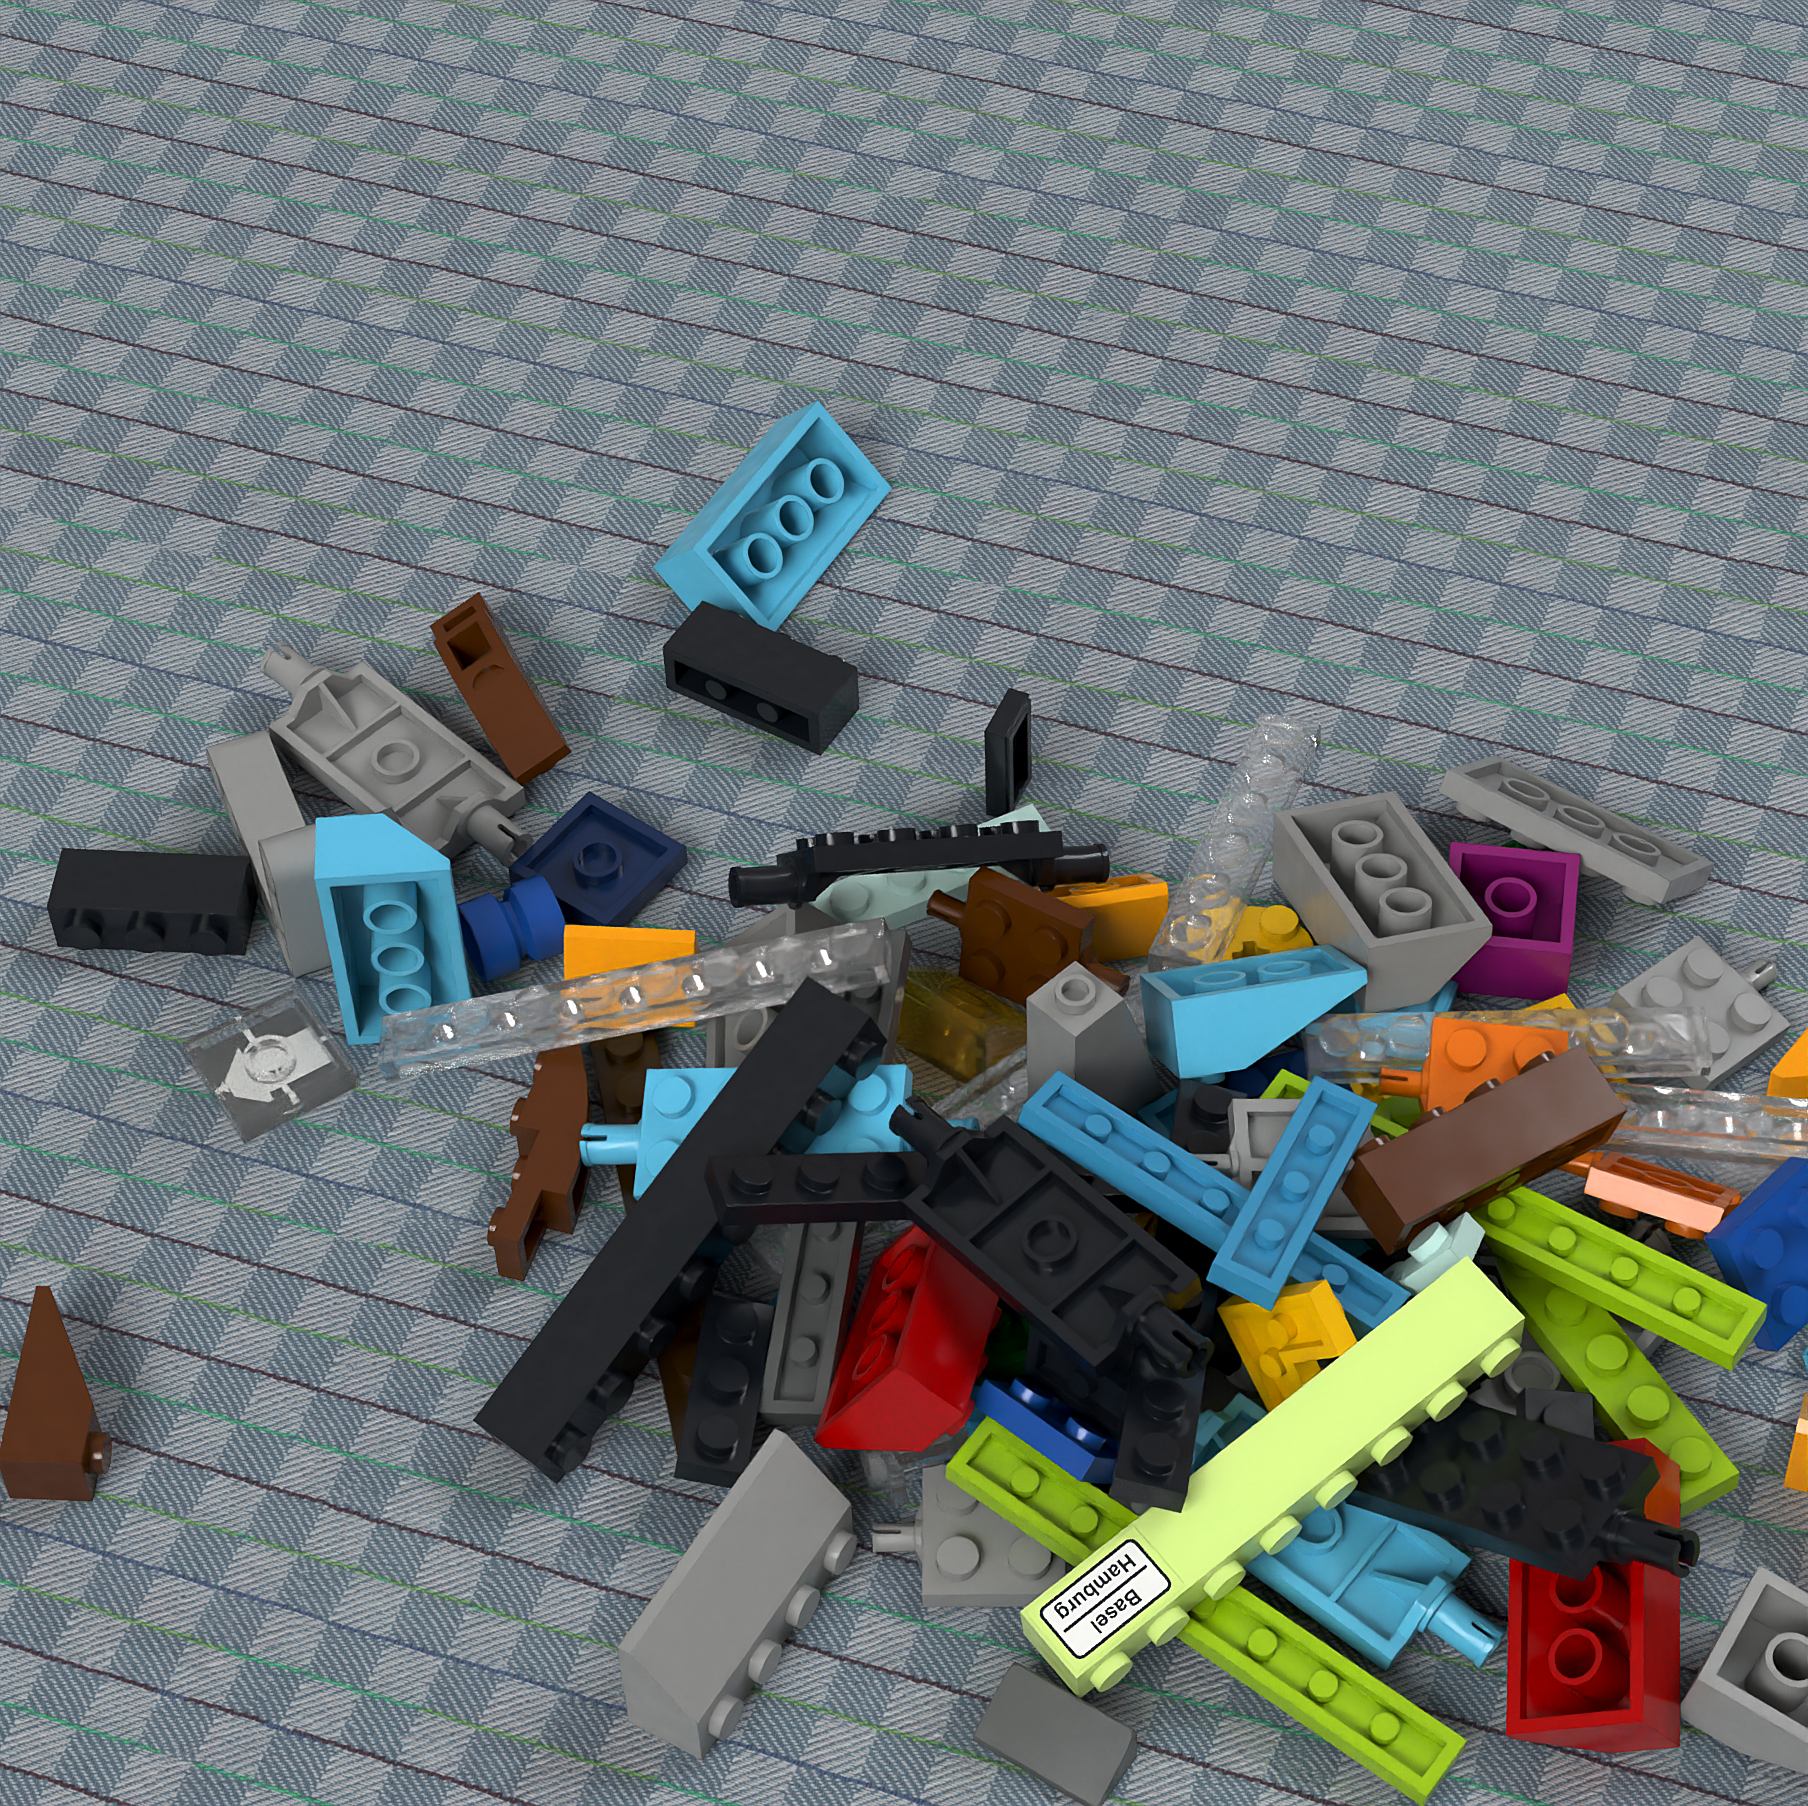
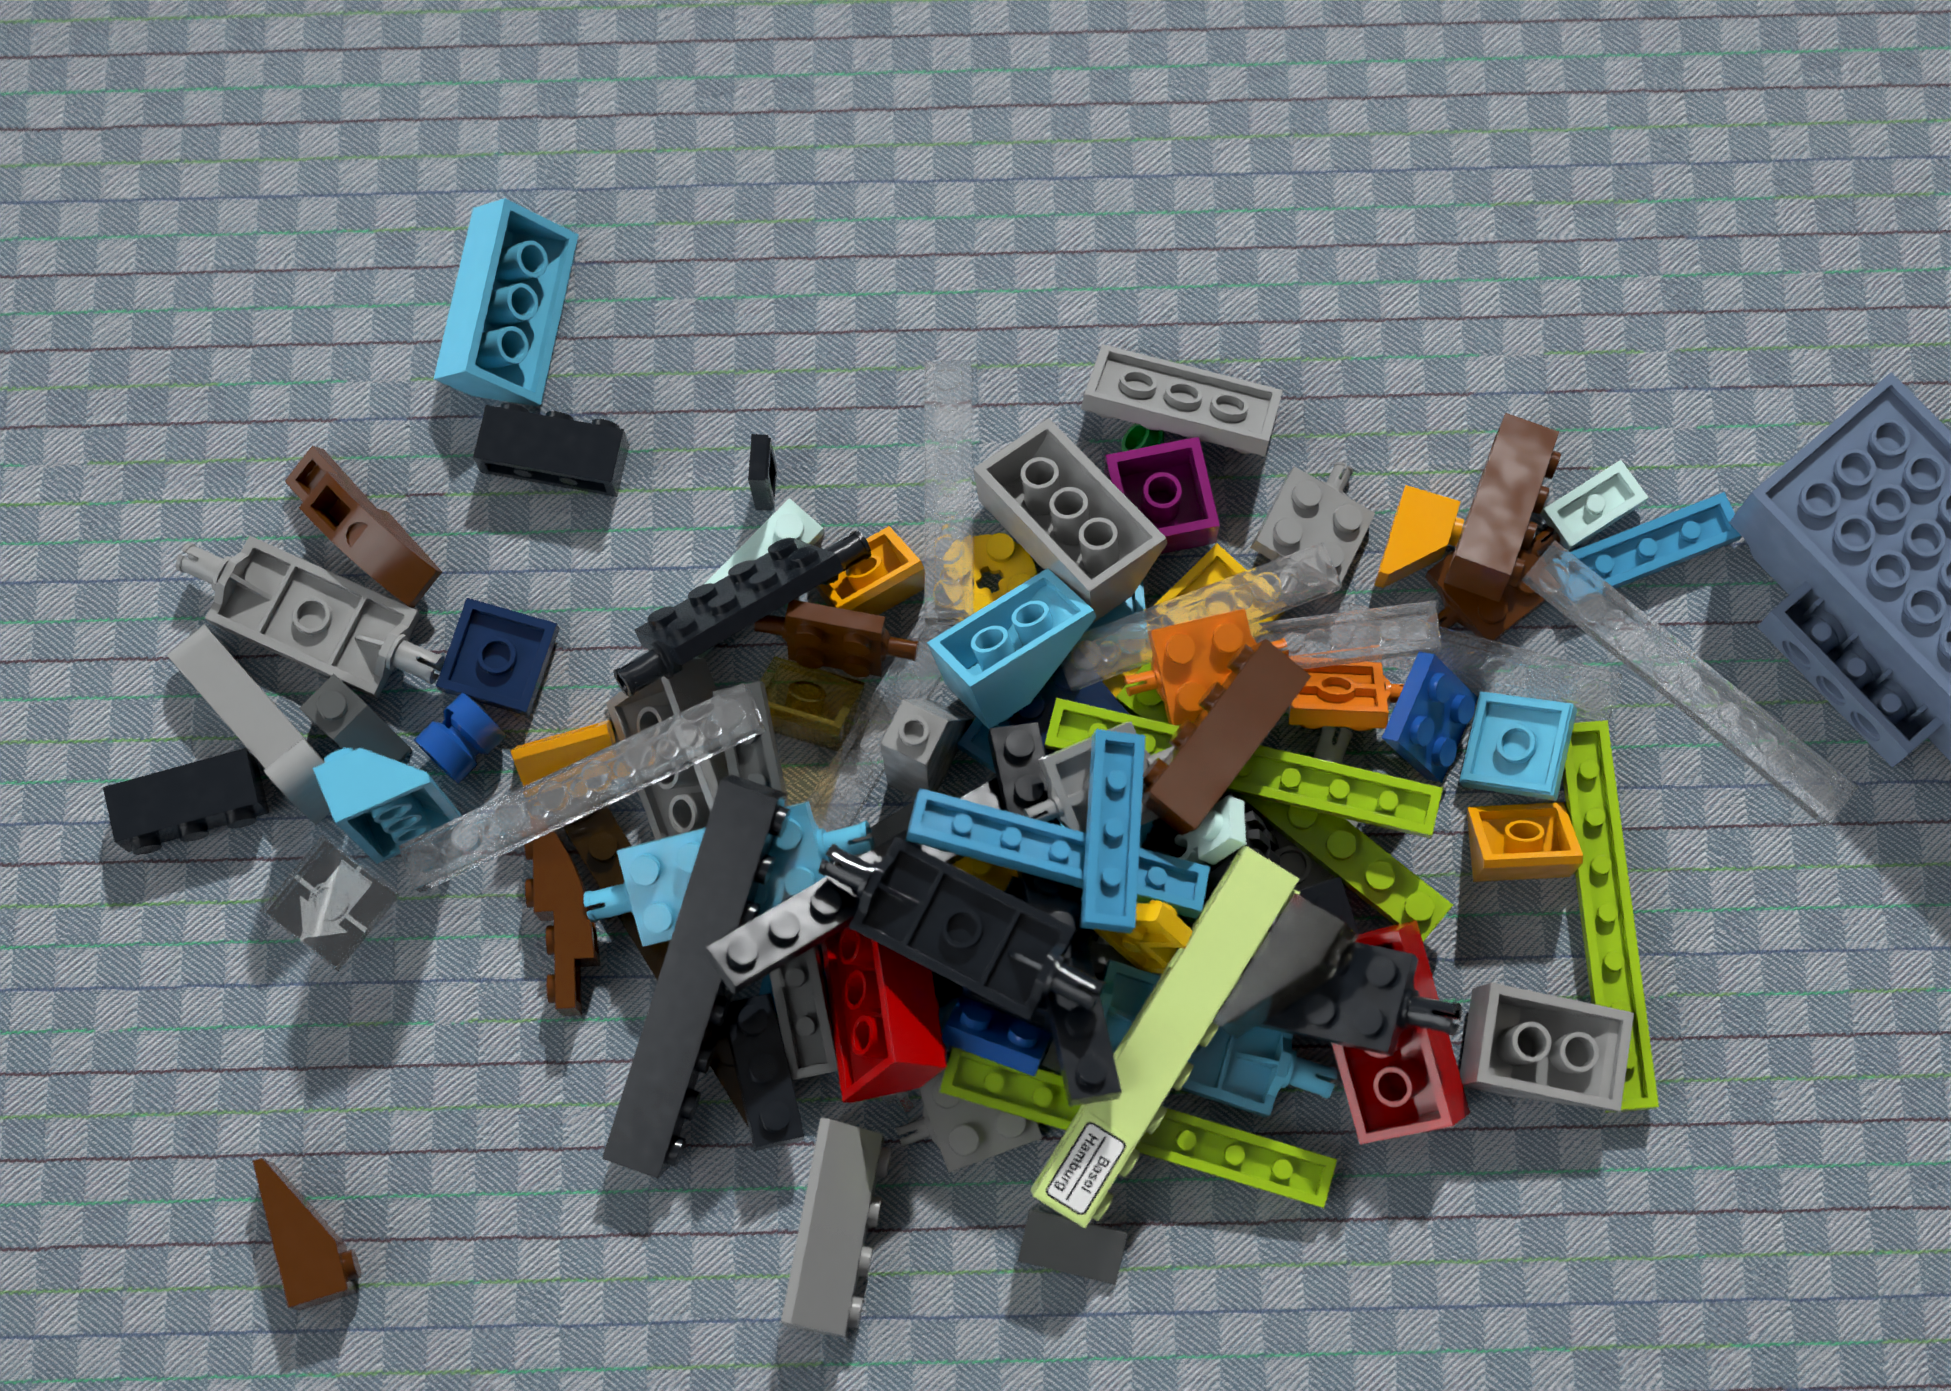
camera: 20 degrees left, 25 degrees up
(1471, 1427) = (1292, 961): none -> clear smoke slope

